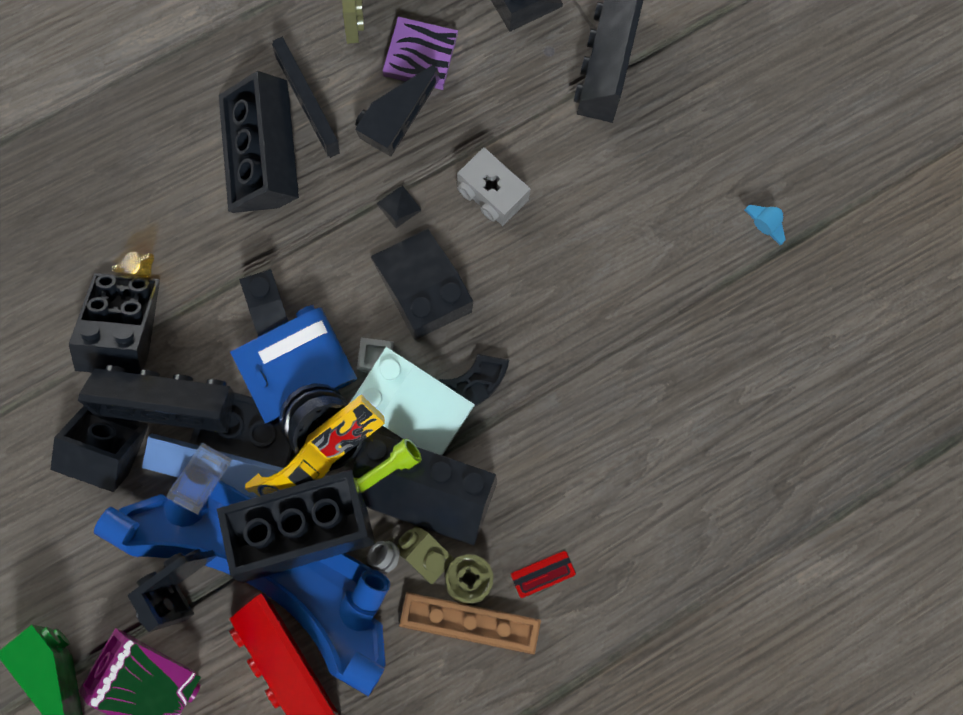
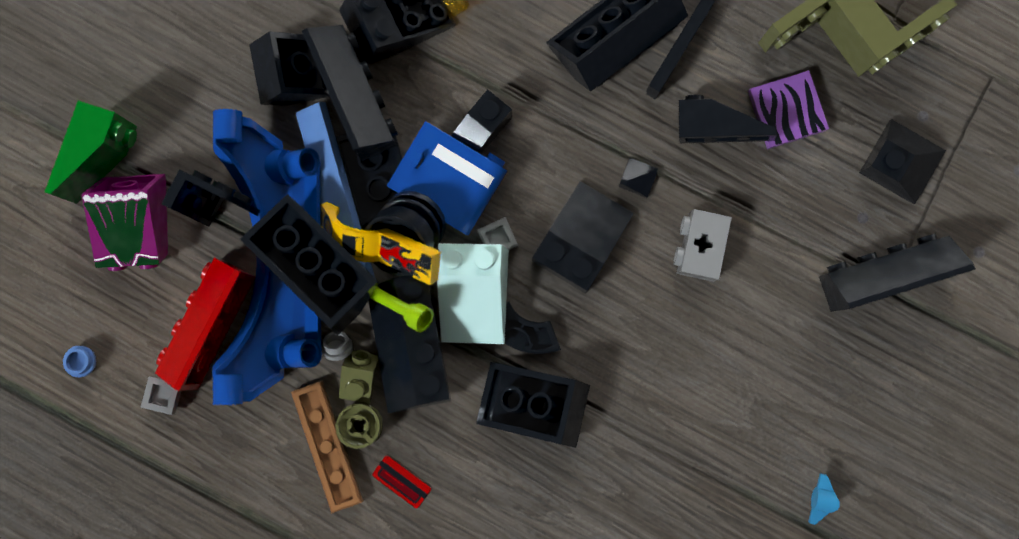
camera: 70 degrees right, 10 degrees up
(199, 478) = (304, 164): clear tile -> none
(543, 411) = (533, 404): none -> black slope

